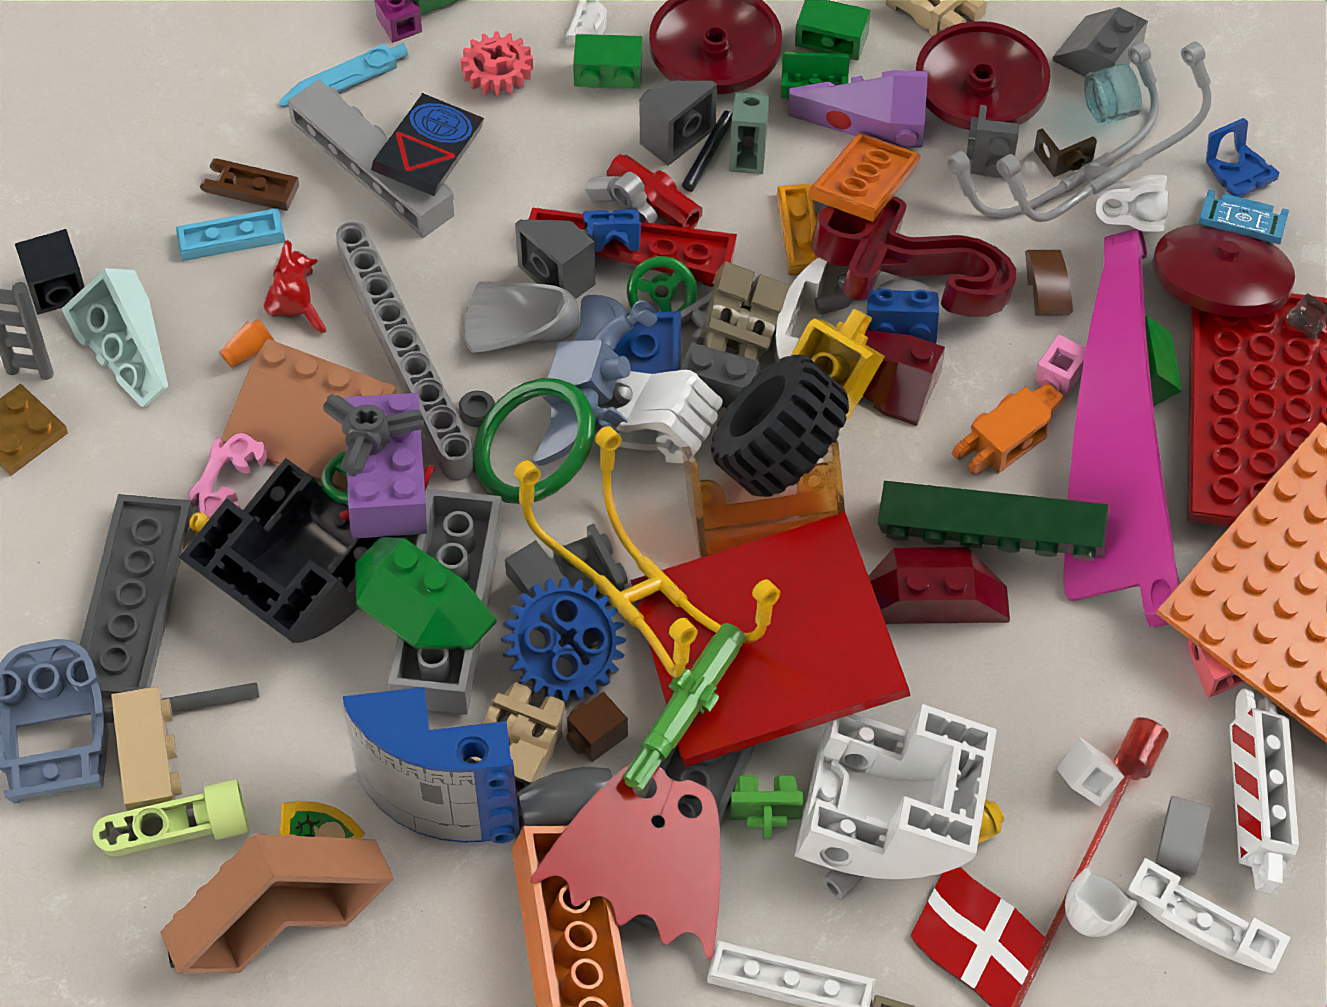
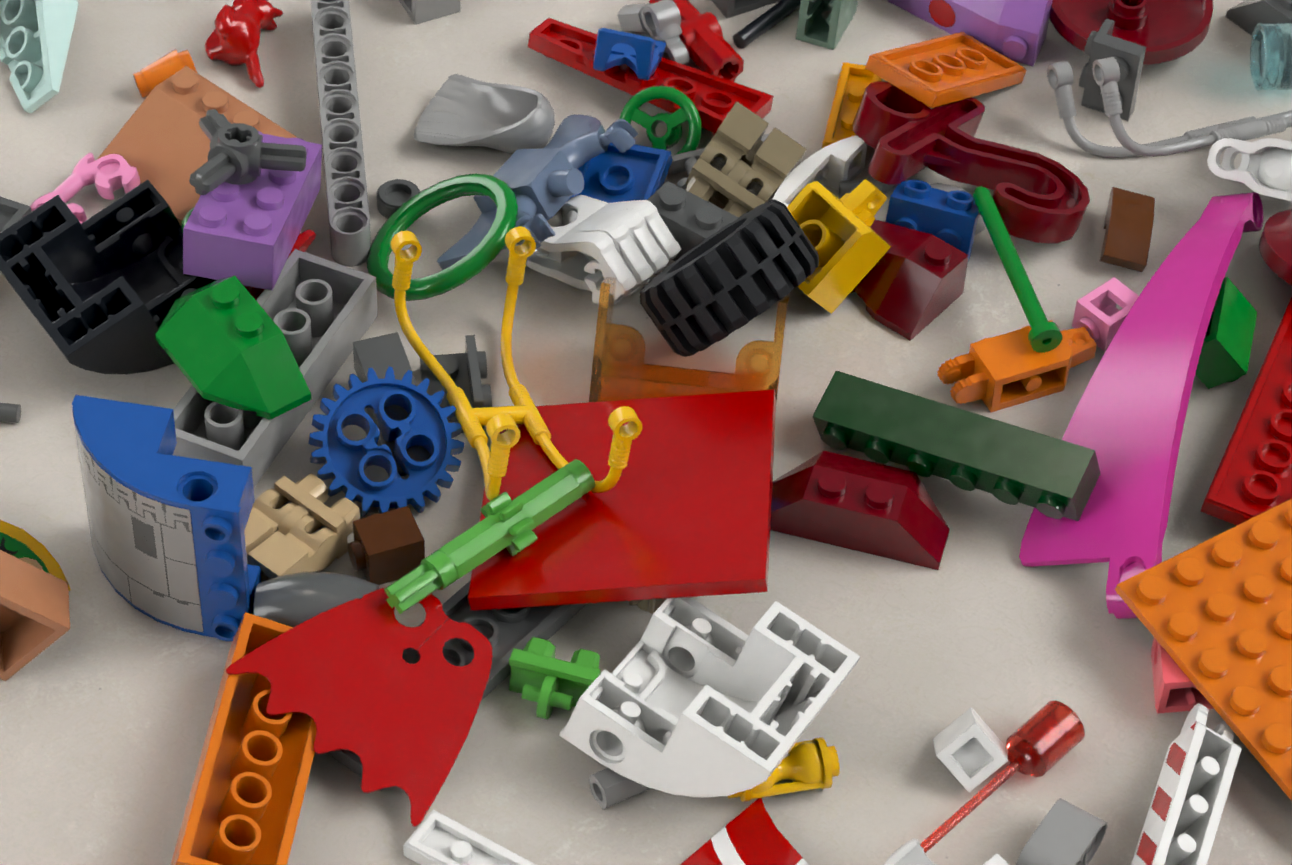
camera: 15 degrees right, 10 degrees down
(556, 254) = (552, 60): dark grey slope -> none
(1027, 404) = (1043, 334): none -> green bar
(1066, 159) = (1201, 109): dark brown bracket -> none

